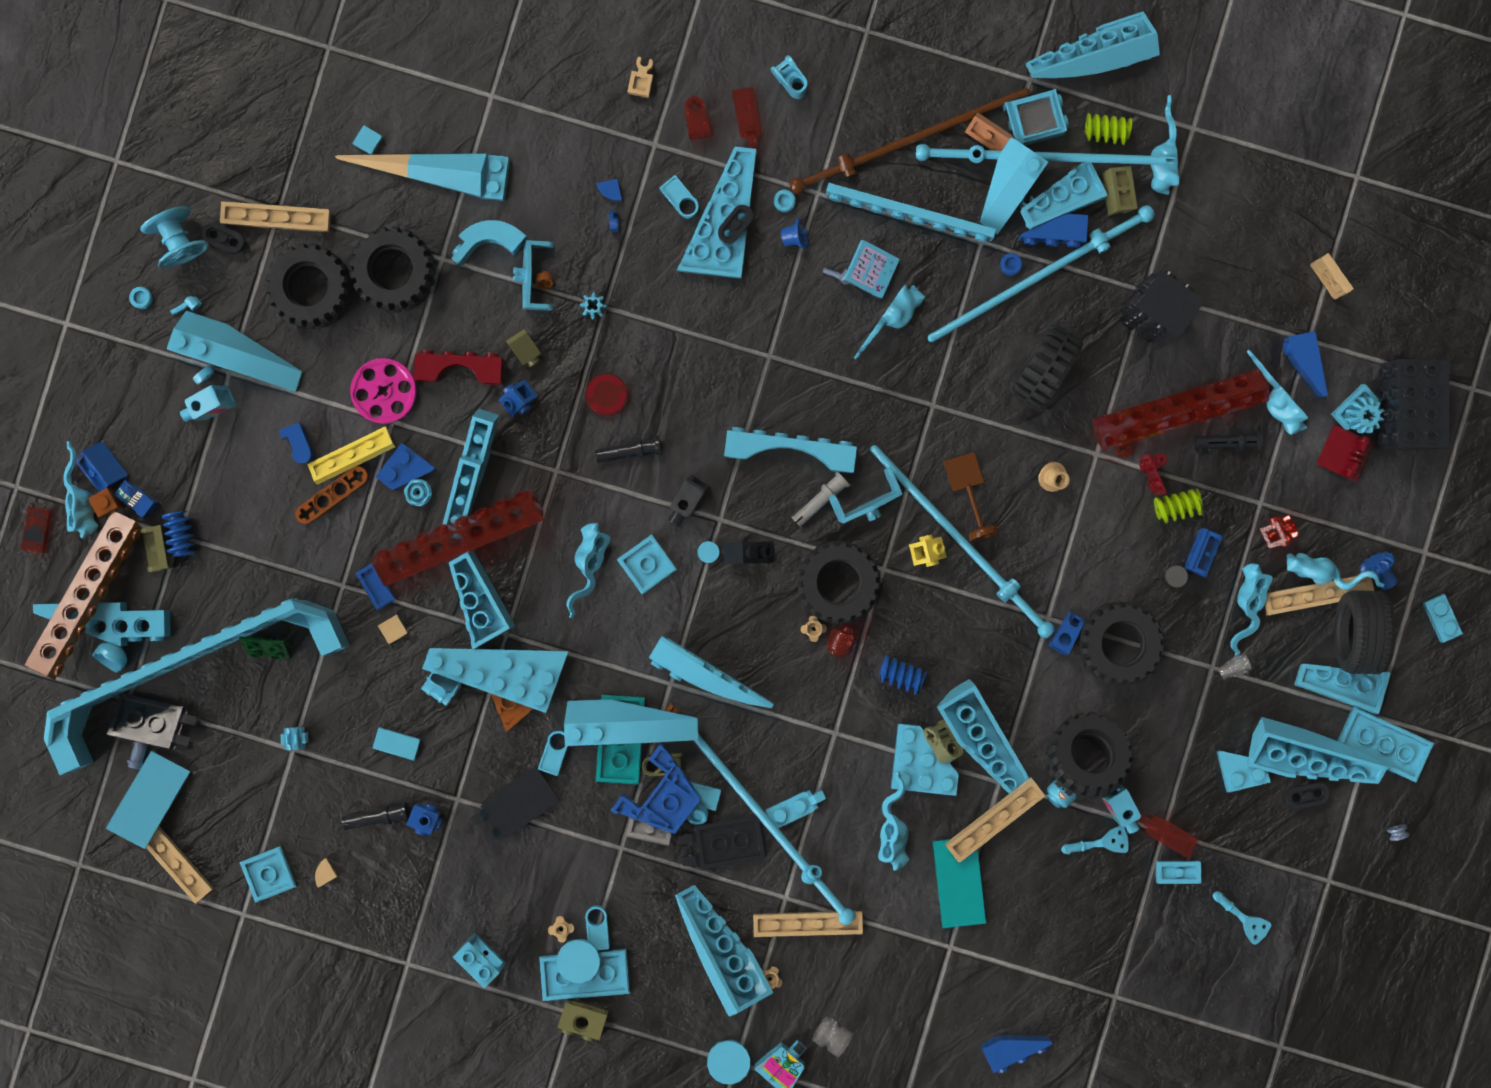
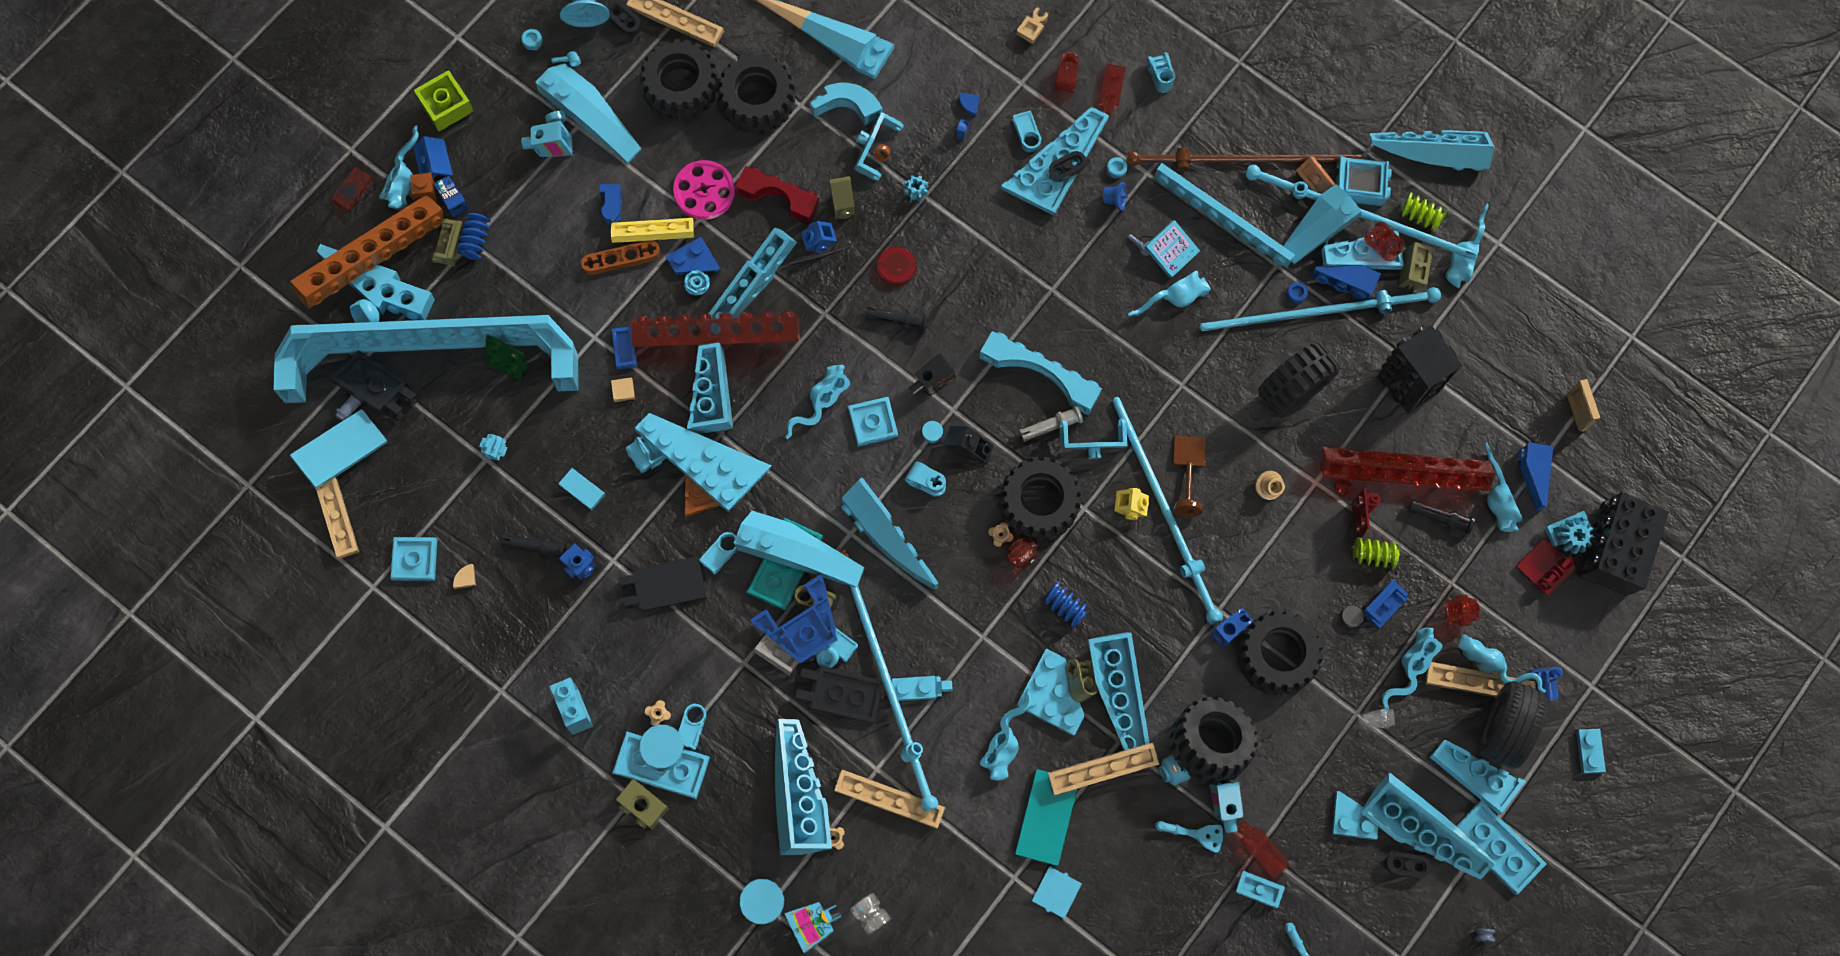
camera: 15 degrees right, 15 degrees down
(83, 404) = (443, 100): none -> lime brick
(717, 603) = (923, 478): none -> medium azure piece
(993, 946) = (1056, 892): none -> medium azure piece
(1079, 177) = (1385, 242): none -> clear red piece

